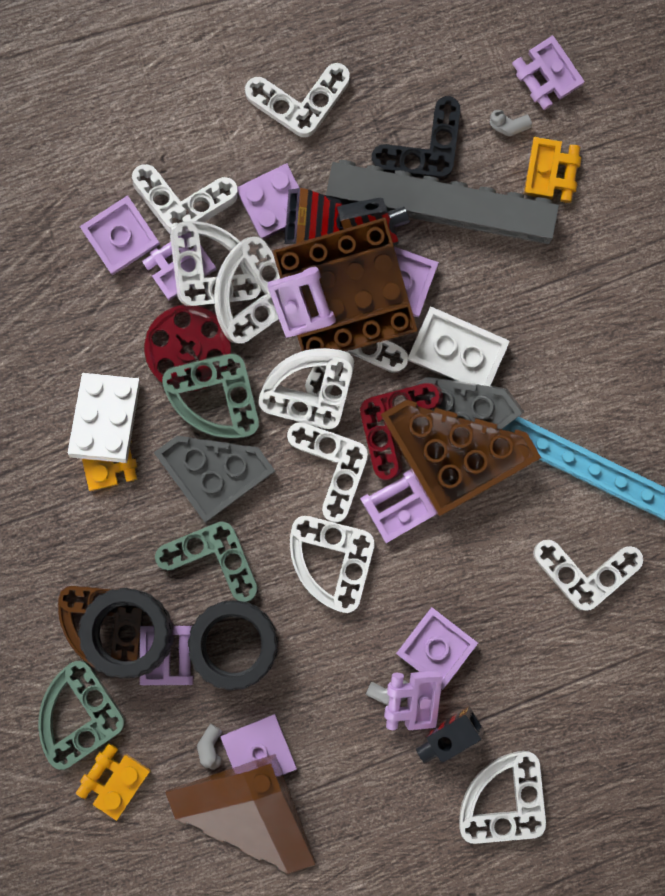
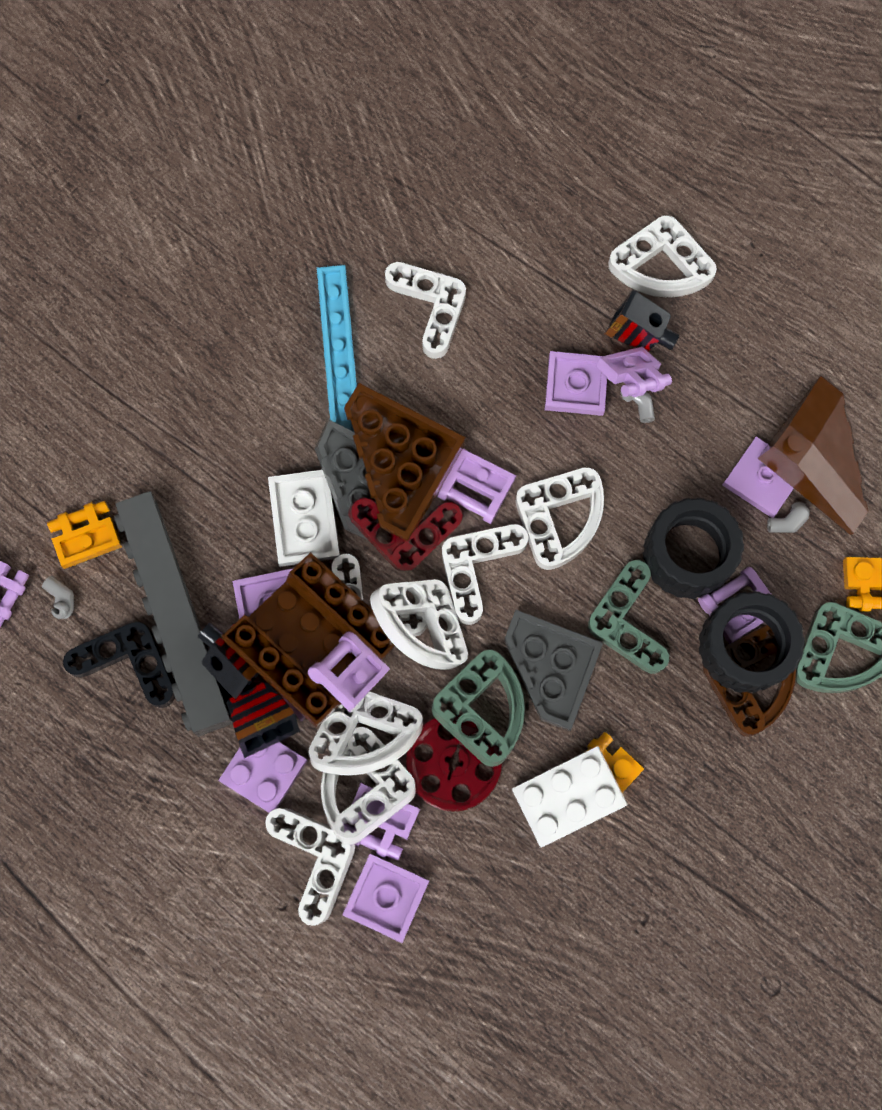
camera: 125 degrees left, 10 degrees down
(297, 109) = (158, 805): white beam -> none

